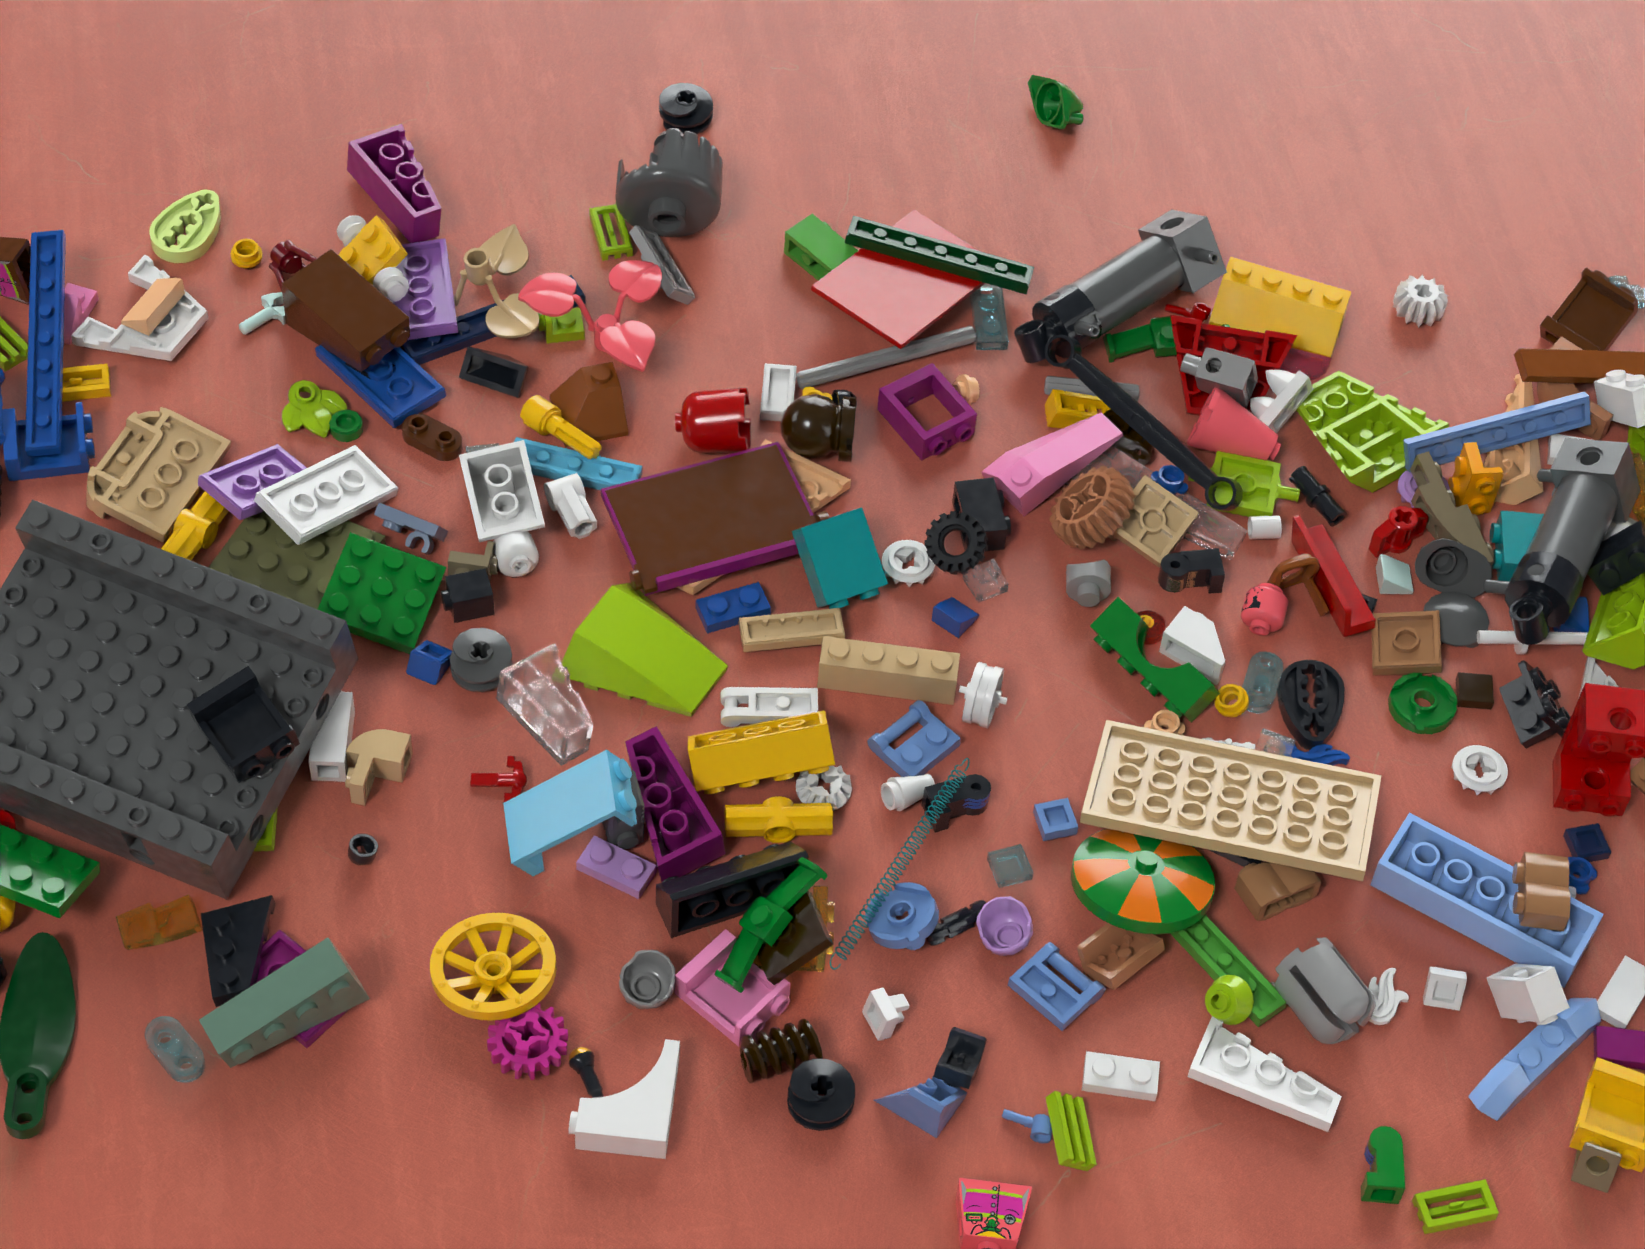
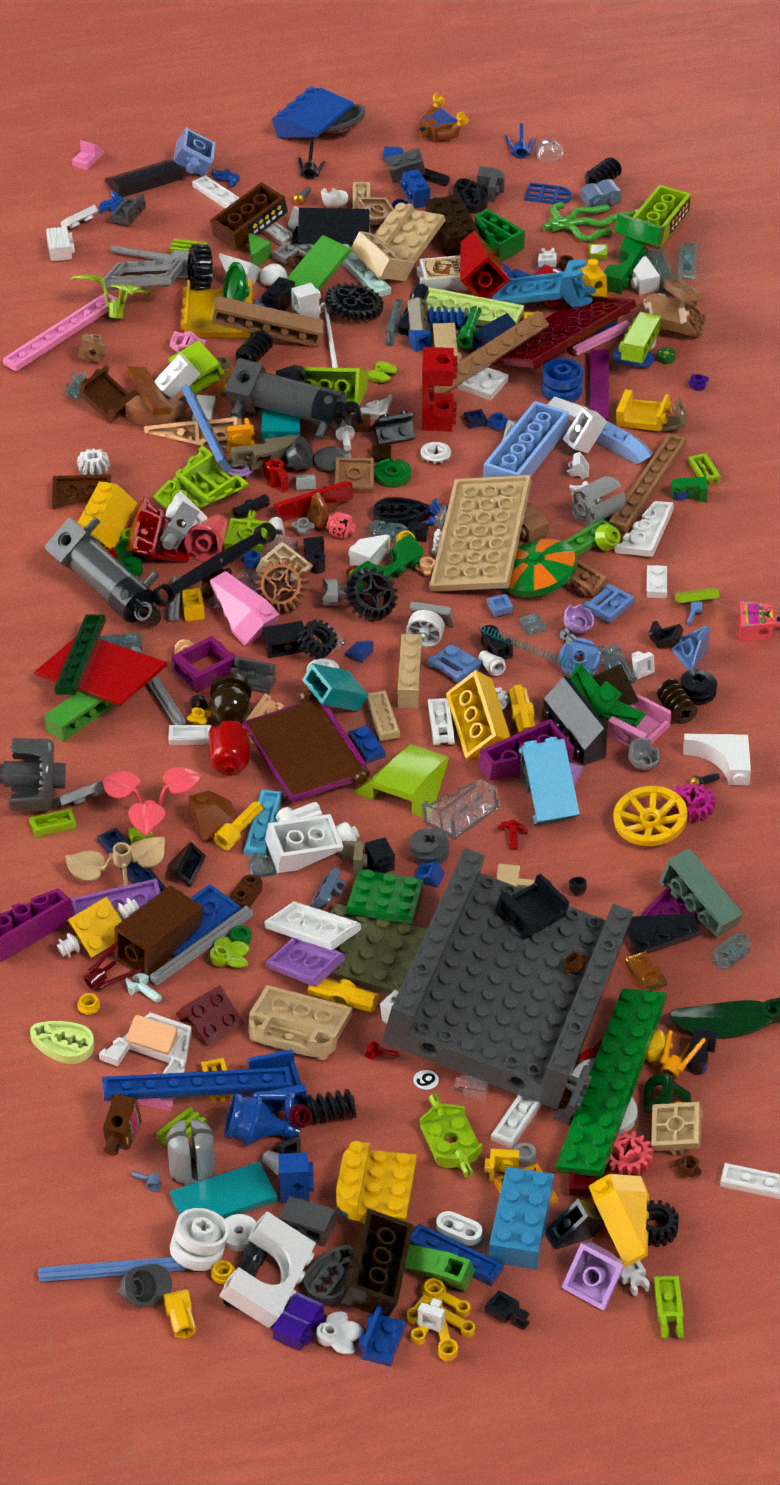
camera: 90 degrees left, 10 degrees down
(128, 778) = (574, 962): none -> reddish brown plate
(189, 375) = (211, 1015): none -> dark red bracket
(334, 380) = (200, 946): none -> light grey axle
(893, 973) = (613, 656): none -> clear light blue plate
(896, 471) = (259, 674): none -> dark grey hinge
(1017, 706) = (443, 611): none -> light grey tile
(1082, 634) = (377, 585): none -> black gear
(1258, 718) = (419, 530): none -> black plate
(1263, 564) = (303, 526): none -> light grey plate
(1361, 273) = (75, 488): none -> reddish brown wing
(1406, 1099) = (648, 482): none -> medium nougat plate
(1542, 891) = (530, 414): medium nougat brick -> none
(1561, 668) = (365, 425): none -> reddish brown plate

